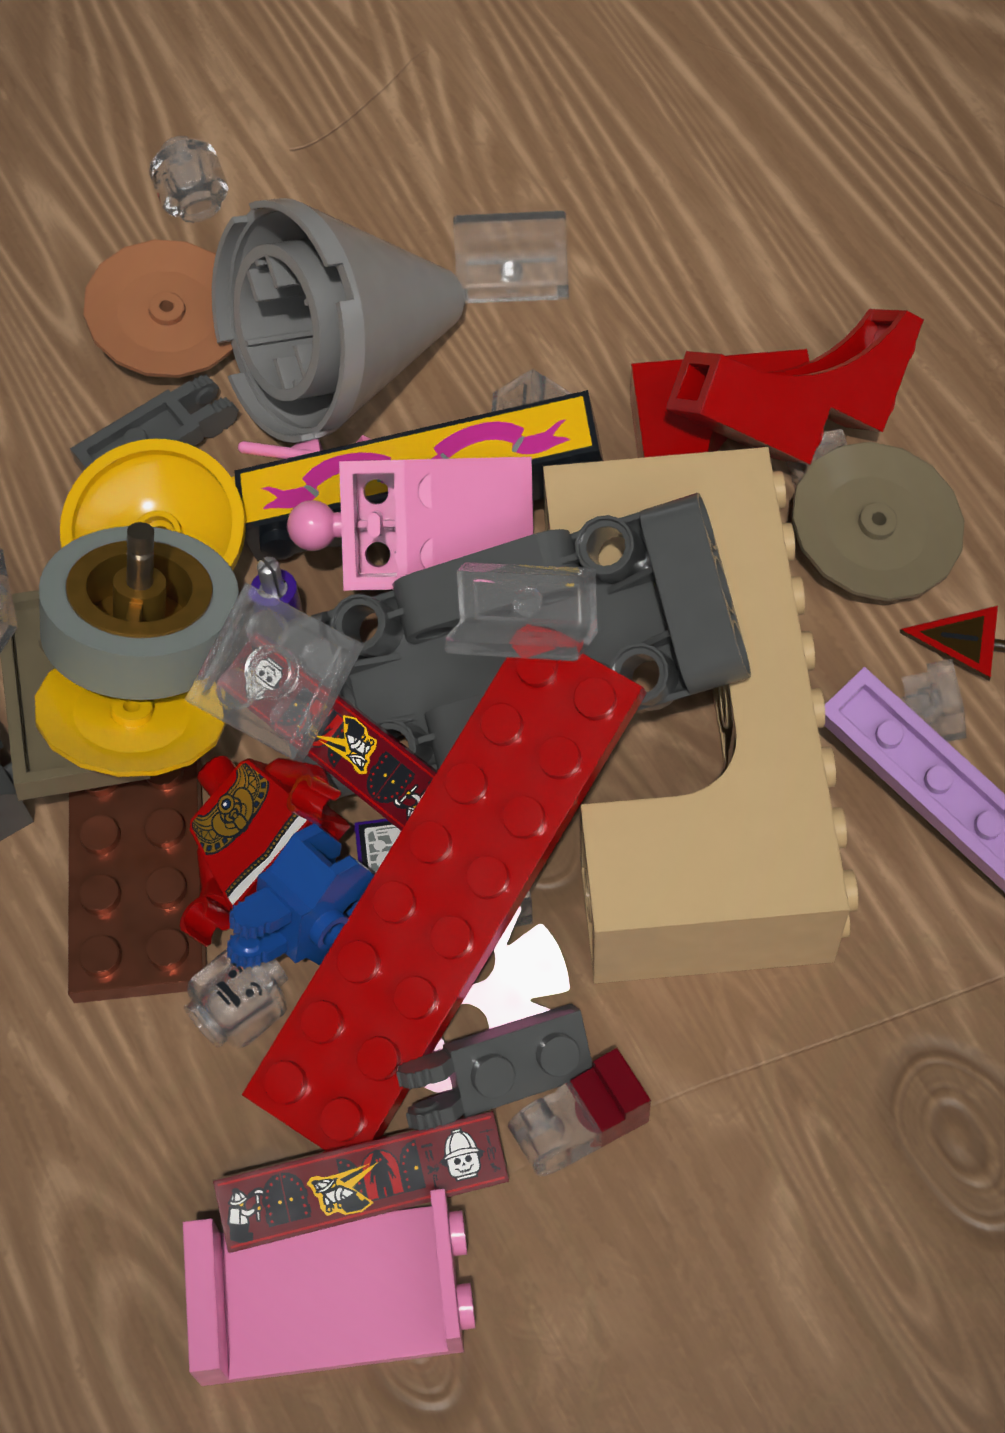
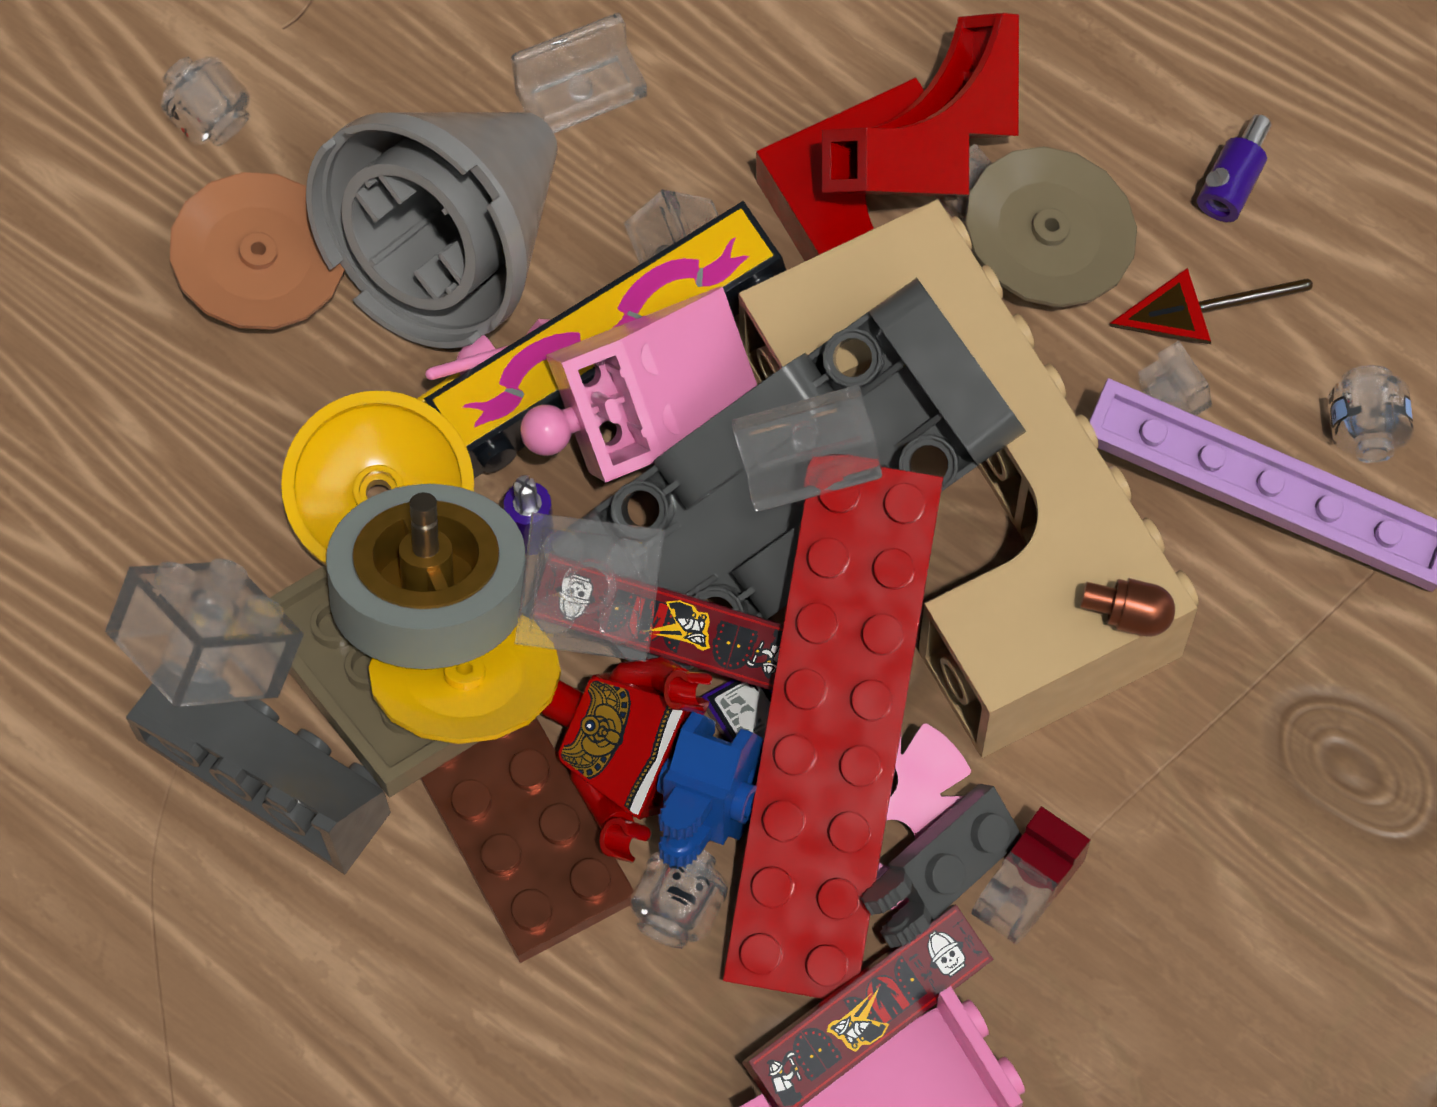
camera: 25 degrees left, 5 degrees up
(172, 415) = (308, 383): dark grey hinge -> none
(780, 881) = (1132, 606): none -> copper cylinder

